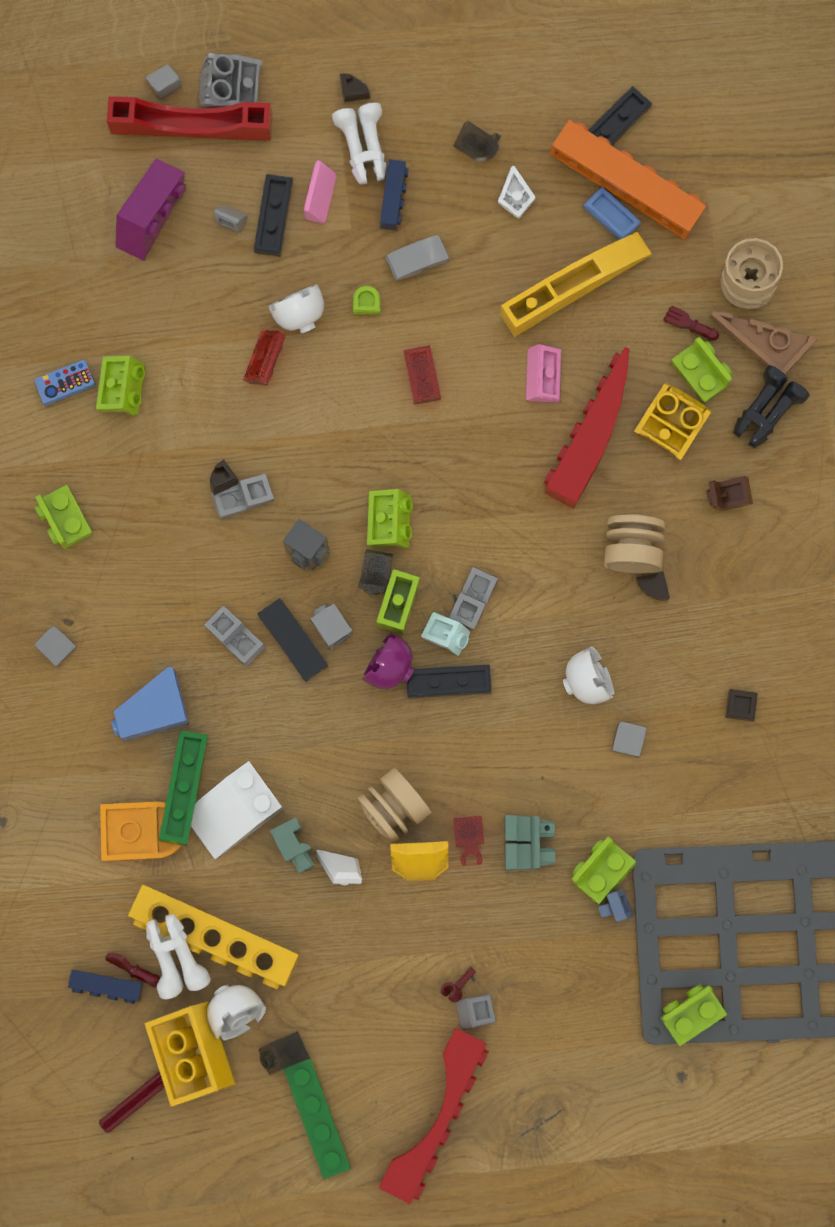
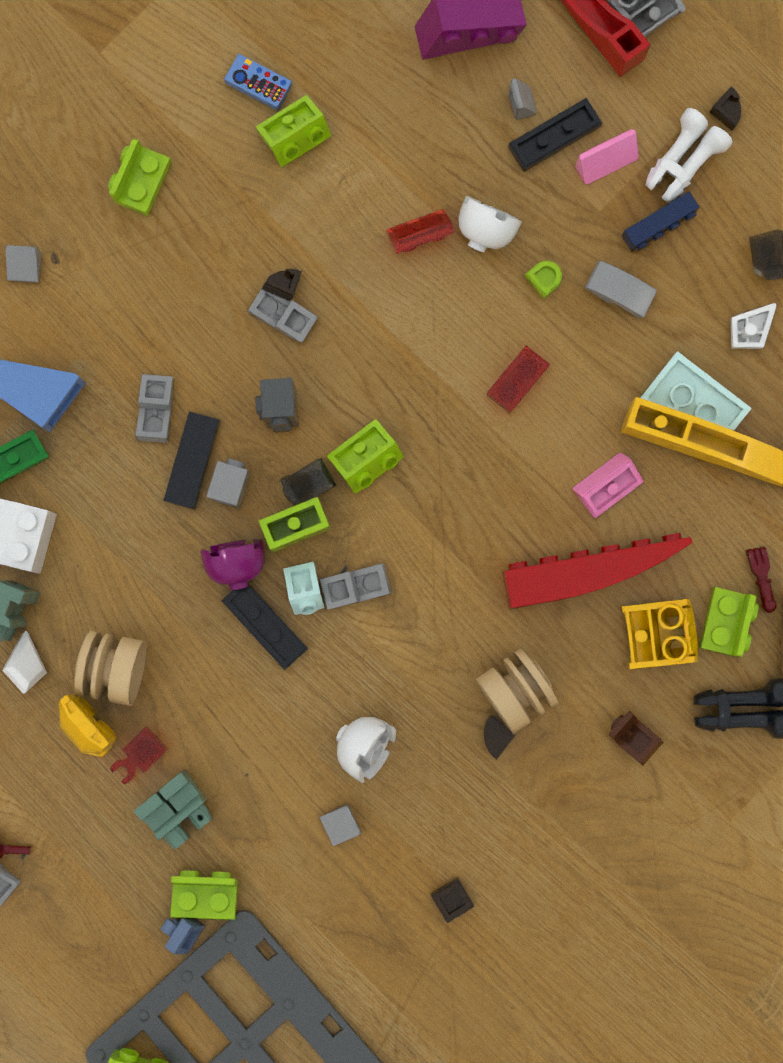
camera: 50 degrees right, 5 degrees up
(527, 266) = (694, 392): none -> light aqua wing

